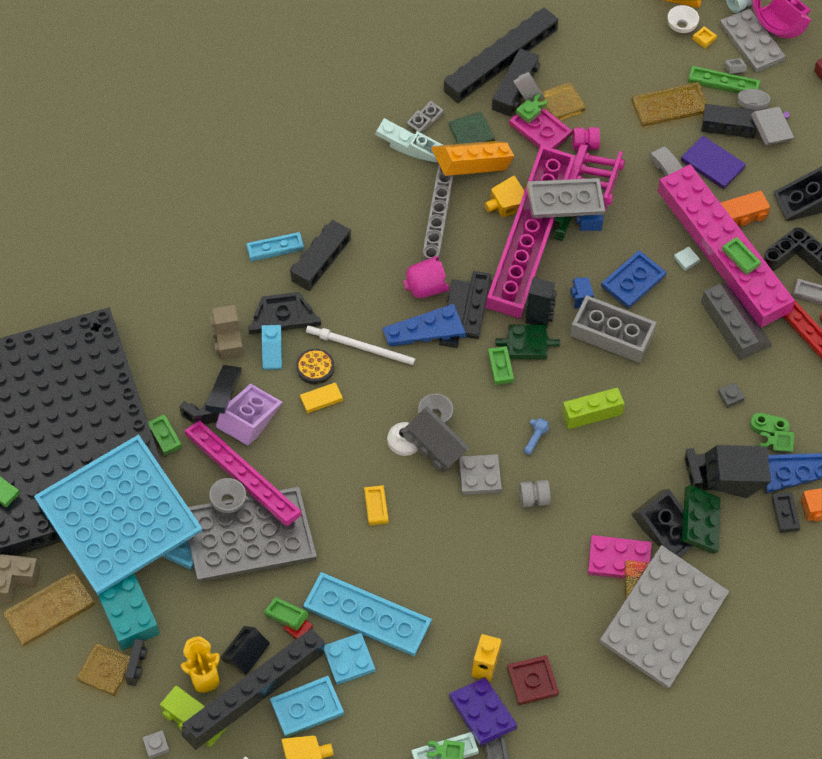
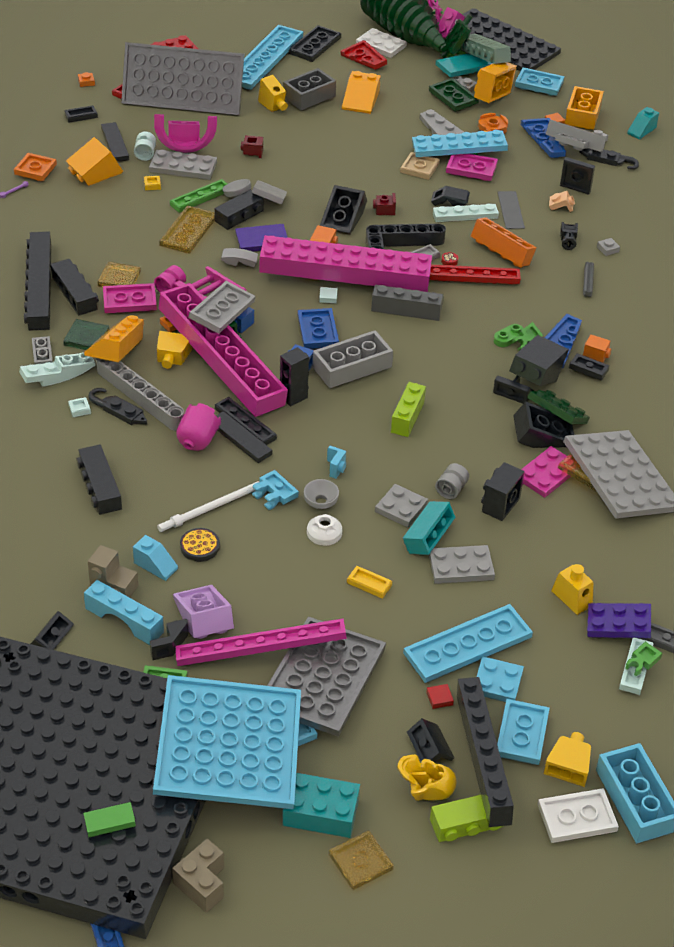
camera: 55 degrees left, 15 degrees down
(48, 608) = (258, 869): clear yellow tile -> none
(134, 668) = (384, 834): black plate -> none
(152, 336) = (53, 631): none -> black slope
(156, 744) = (470, 863): light grey plate -> none
(201, 364) = (141, 620): none -> medium azure arch
(223, 389) = (169, 606): black tile -> none
(227, 487) = (280, 654): light grey piece -> none
(275, 246) = (55, 504): medium azure tile -> none
(284, 310) = (126, 531): black wing -> none
(286, 613) = (422, 694): bright green tile -> none
(321, 397) = (234, 558): yellow tile -> none
(388, 186) = (79, 407): none -> light aqua tile
(411, 210) = (118, 407): none -> black plate
(419, 378) = (279, 489): none -> medium azure plate
(432, 325) = (237, 457): blue wing -> none
(434, 439) = (354, 502): dark grey slope -> none
(451, 558) = (461, 564): none -> light grey plate
(464, 509) = (429, 527): none -> teal brick
(483, 399) = (337, 461): none -> medium azure bracket
(500, 365) = (316, 437): bright green plate -> none
(527, 341) = (310, 412): dark green plate -> none
(528, 87) = (93, 277): light grey slope -> none
(530, 110) = (110, 290): bright green plate -> none
(532, 680) = (614, 577): dark red plate -> none
(540, 427) = (395, 447): medium blue piece -> none
(550, 537) = (502, 491): none -> black brick
(685, 15) = (127, 180): white piece -> none
(731, 395) = (465, 339): dark grey plate -> none
(735, 65) = (195, 182): light grey tile -> none
(741, 256) = (371, 254): bright green tile -> none

